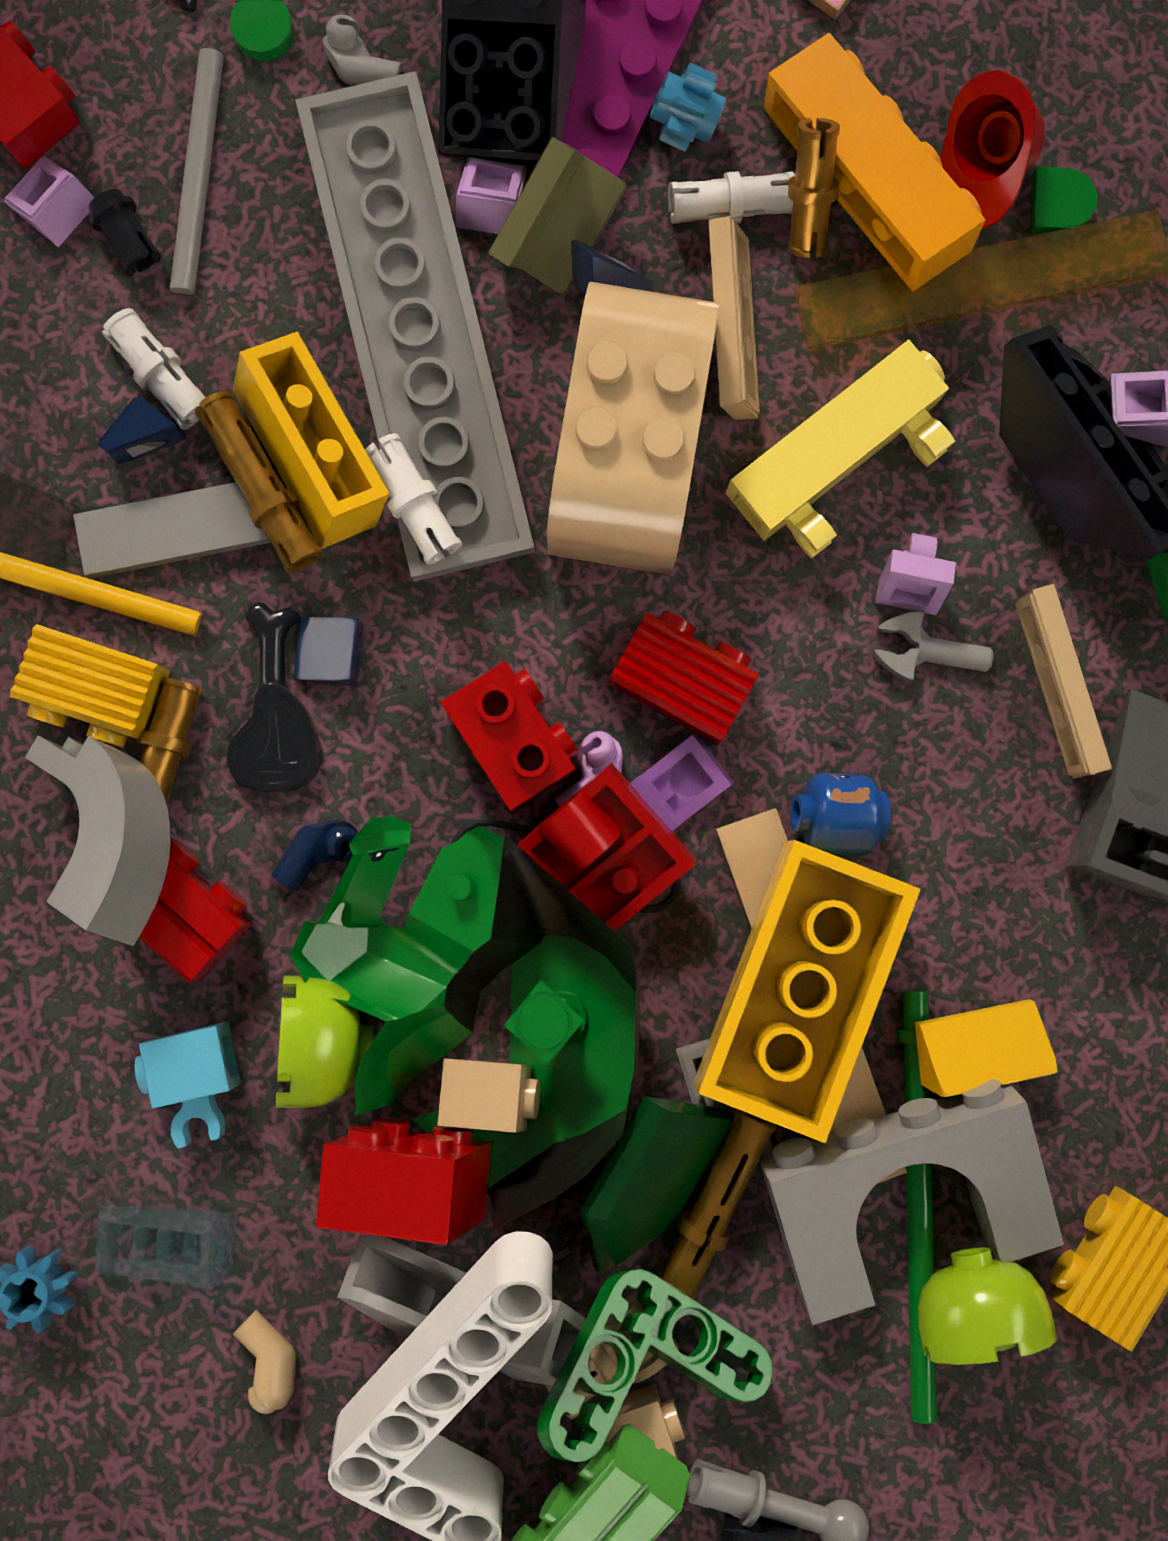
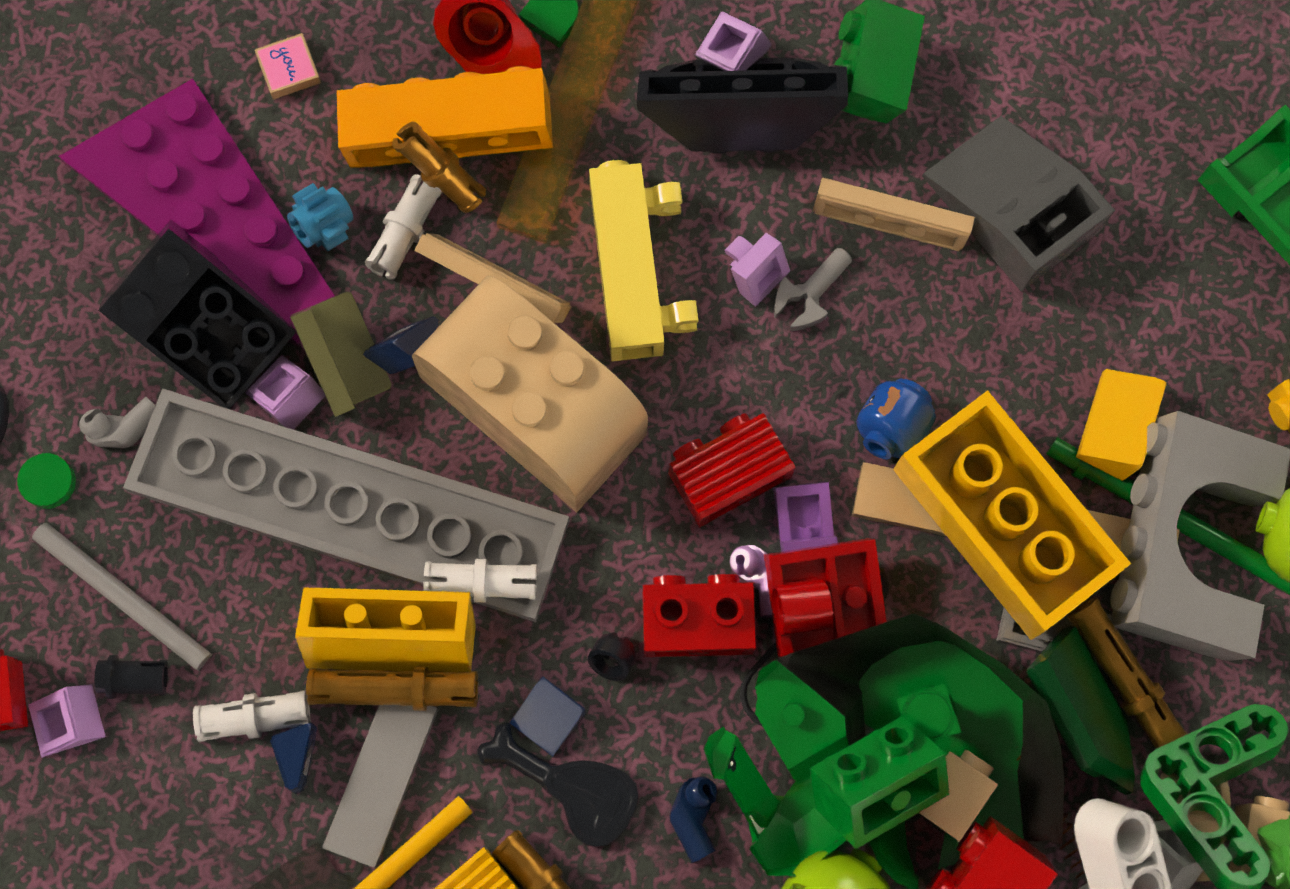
camera: 60 degrees left, 10 degrees down
(431, 680) = (618, 648): none -> black hinge
(442, 1011) = (879, 781): none -> green brick

